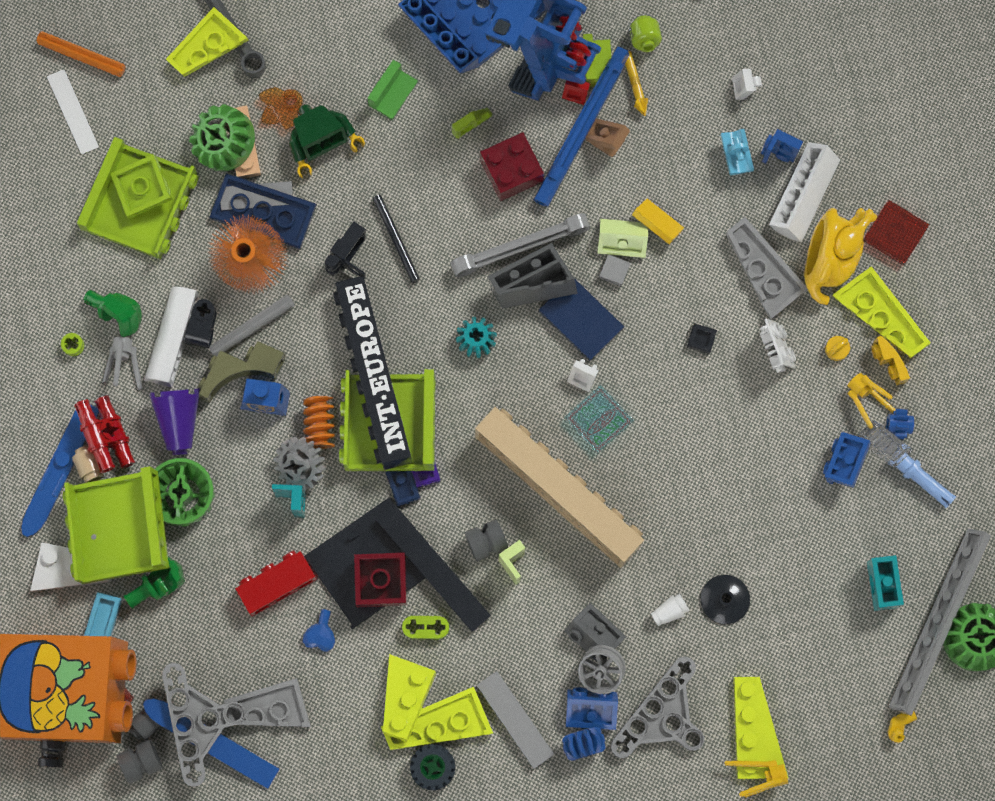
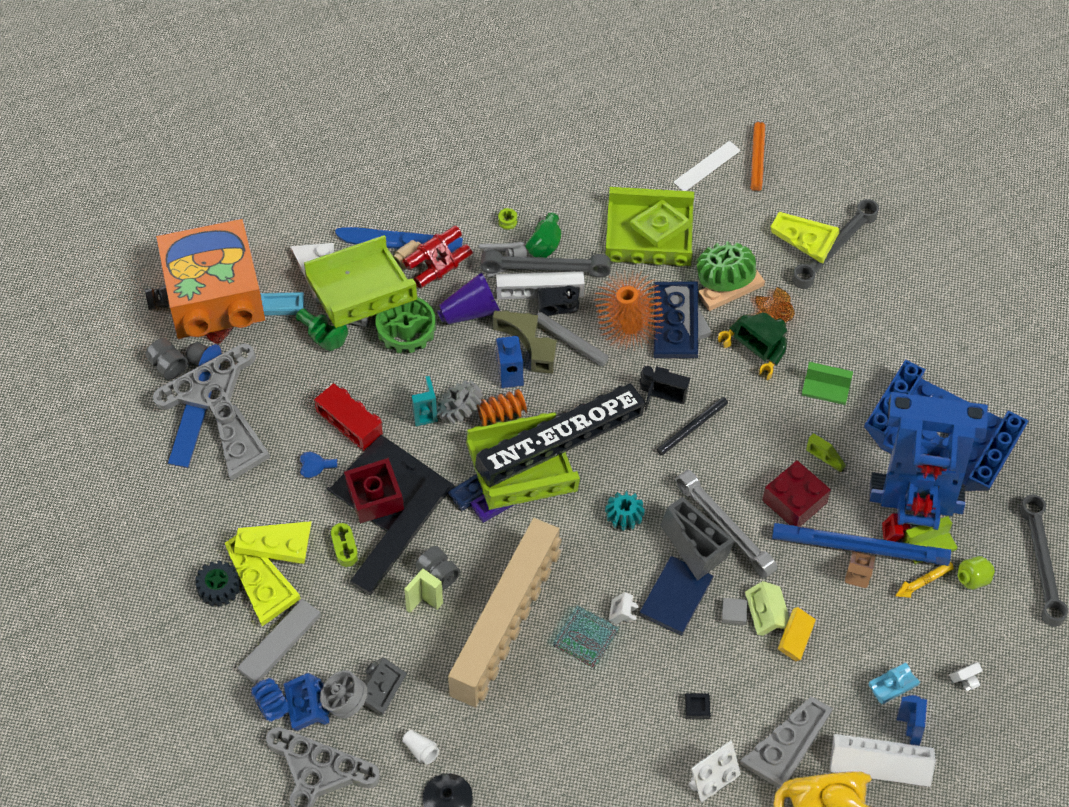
camera: 75 degrees right, 20 degrees down
(131, 373) = (493, 262): none -> dark grey piece

